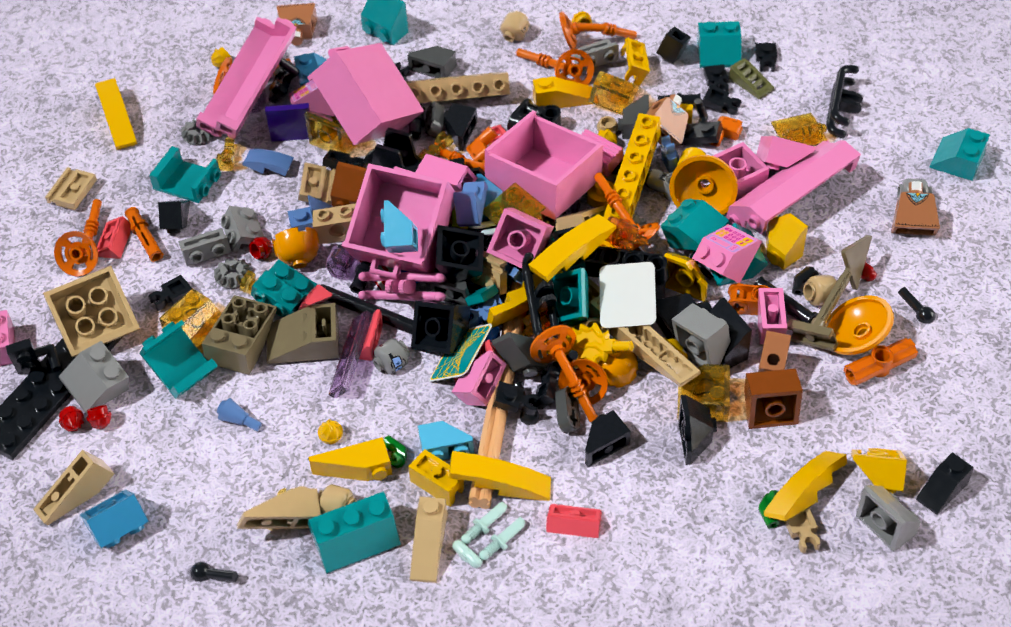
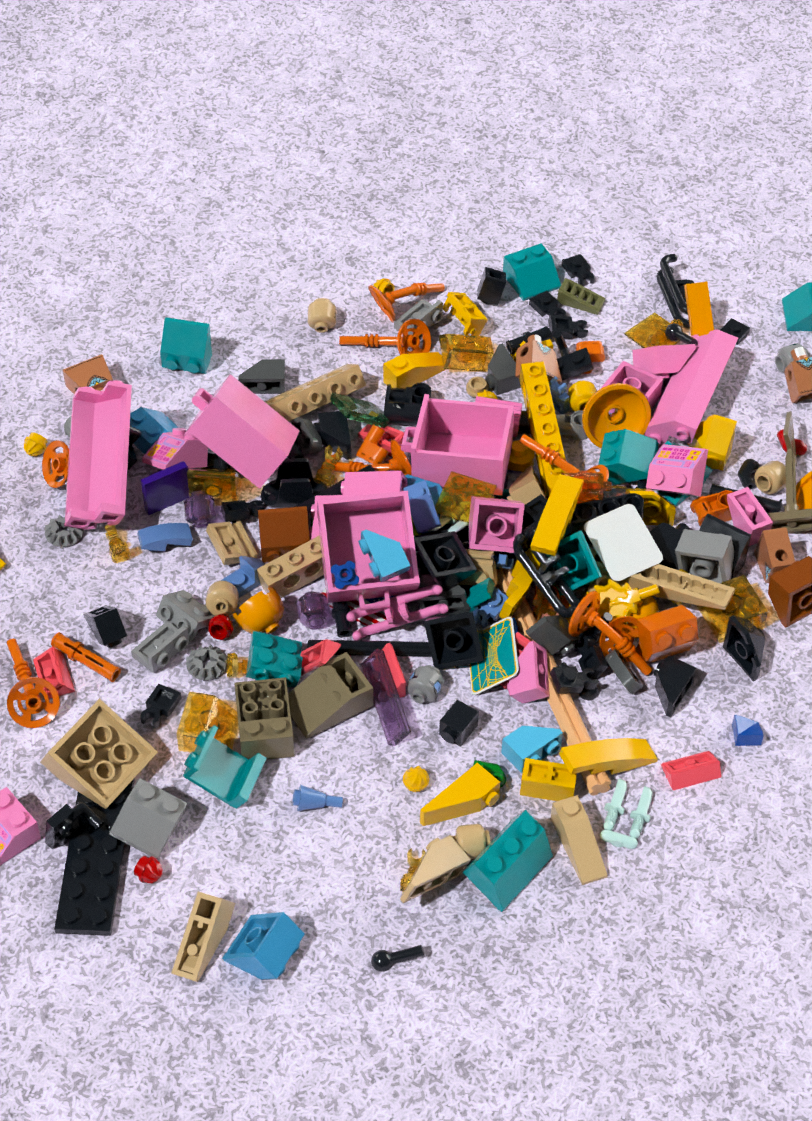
camera: 30 degrees left, 0 degrees up
(99, 417) = (176, 855): red plate -> none
(184, 178) = (87, 584): teal panel -> none
(273, 223) = (222, 598): none -> tan head
(307, 148) = (199, 509): none -> clear purple head
(364, 240) = (340, 581): none -> blue plate
(395, 399) = (458, 723): none -> black brick
(488, 111) = (359, 410): none -> clear green tile
(620, 390) = (667, 633): none -> orange slope
(646, 506) = (746, 731): none -> blue slope
(810, 133) = (675, 332): none -> black bar
(846, 117) = (699, 308): none -> light orange tile
(874, 153) = (736, 329): none -> black plate

